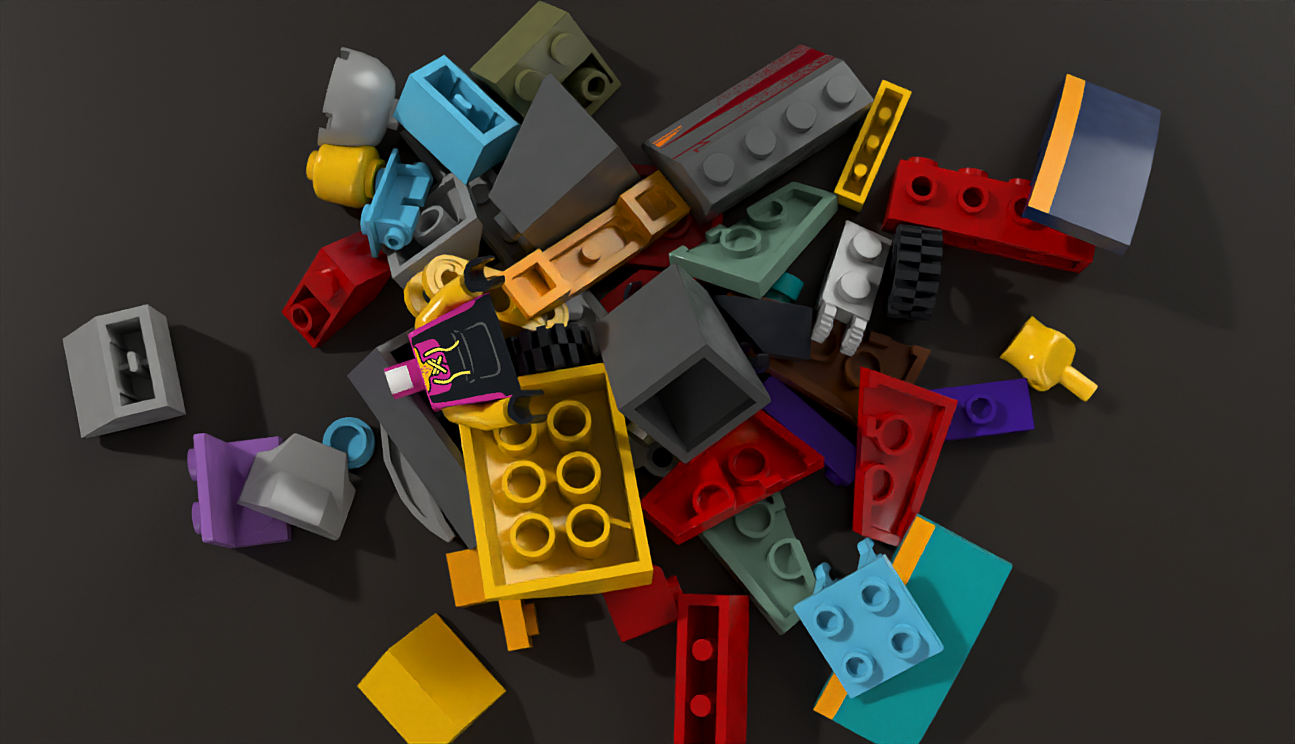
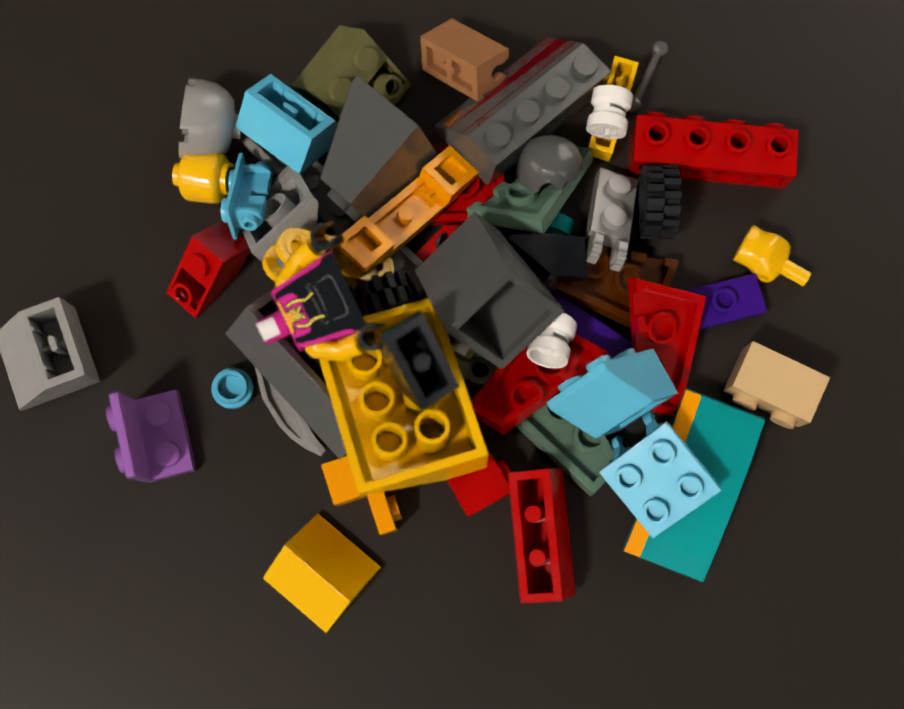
camera: 10 degrees left, 0 degrees up
(301, 485) = (199, 426): light grey slope -> none
(578, 444) = (417, 361): none -> black slope
(689, 61) = (463, 58): none -> medium nougat hinge
(753, 440) = (551, 346): none -> white wheel
(780, 207) = (548, 161): none -> dark grey hair
(823, 509) = (613, 392): none -> medium azure slope
(865, 152) = (609, 112): none -> white wheel
(941, 78) = (659, 51): none -> dark grey hinge
(1032, 525) = (776, 386): none -> tan brick
(1094, 165) = (787, 102): dark blue slope -> none

